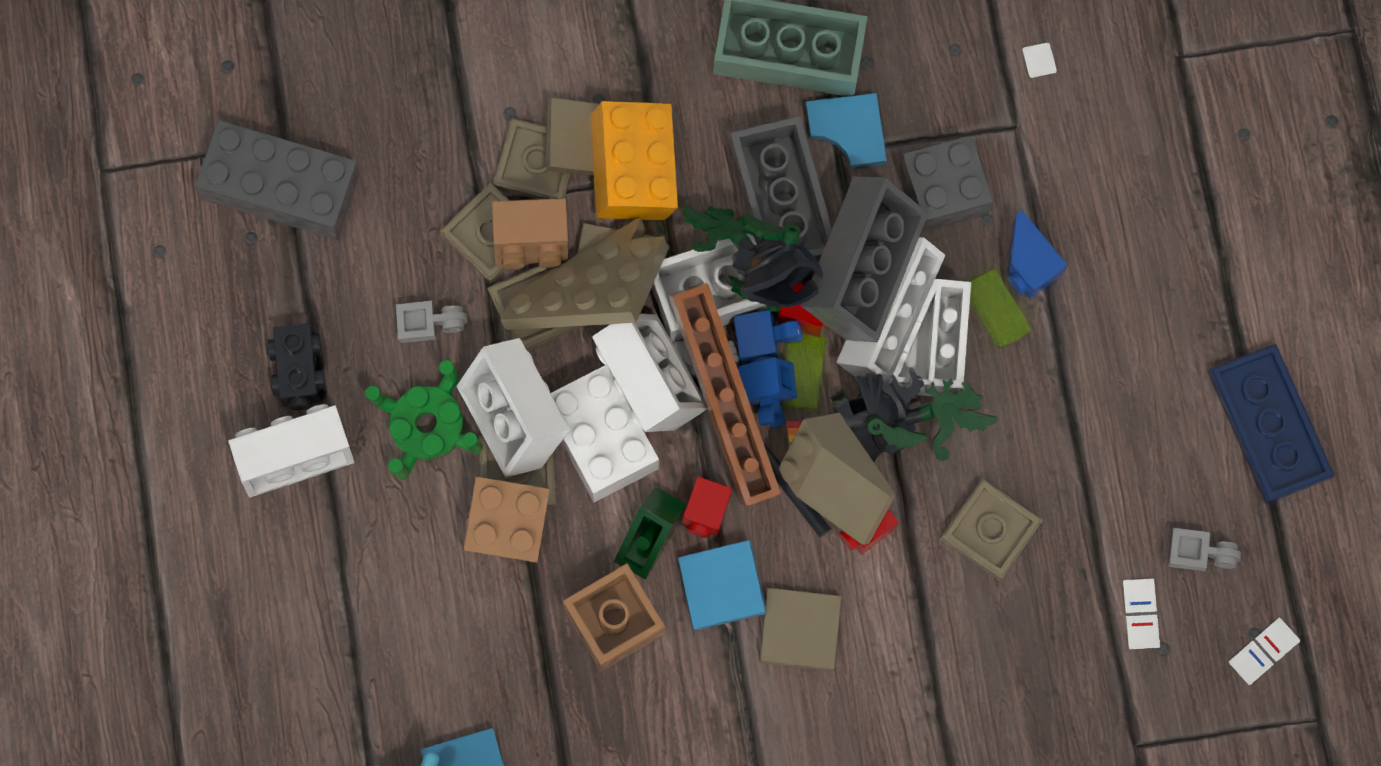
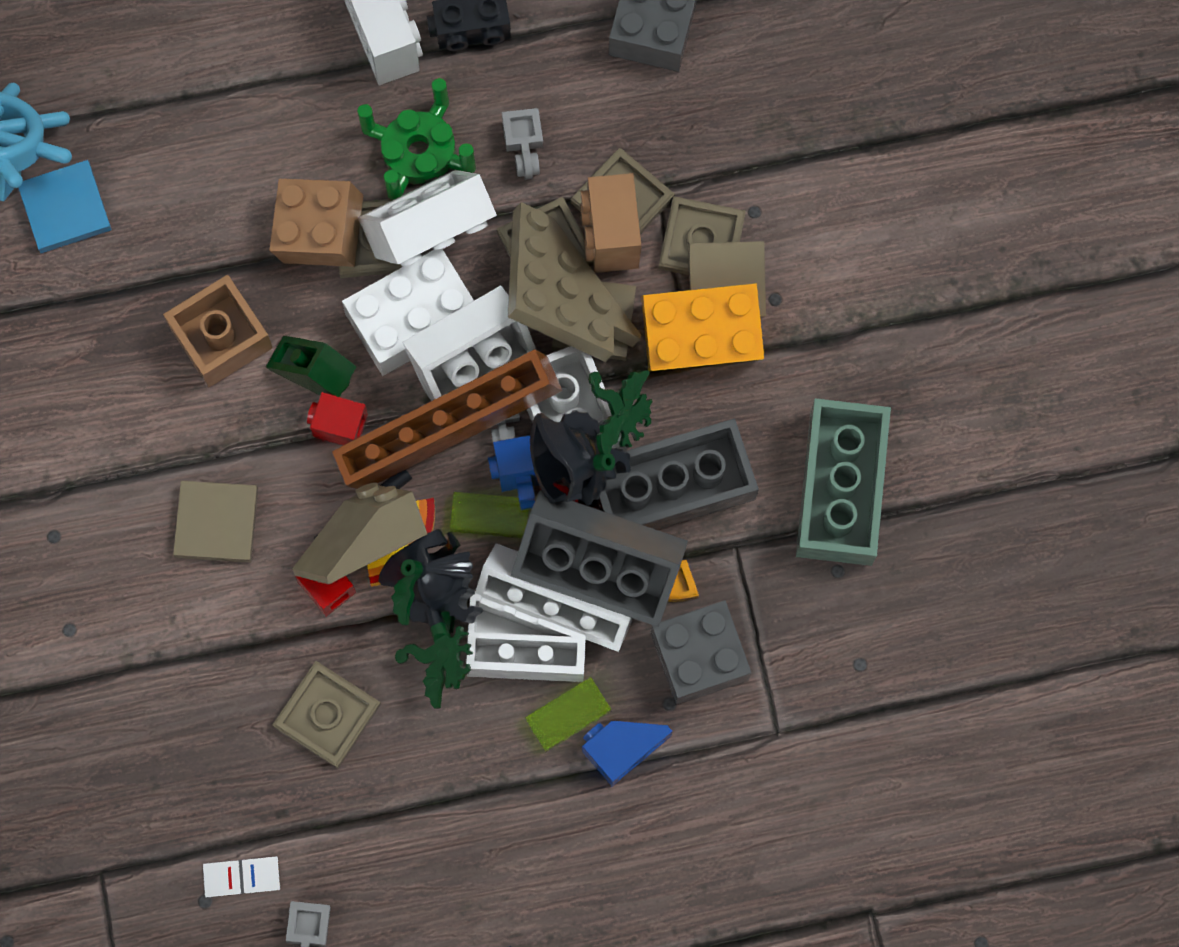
camera: 90 degrees right, 0 degrees up
(722, 585) = (257, 440): dark azure tile -> none
(767, 385) = (467, 473): blue brick -> none
(851, 125) = (762, 556): dark azure tile -> none
(1039, 60) = (855, 756): white sticker -> none

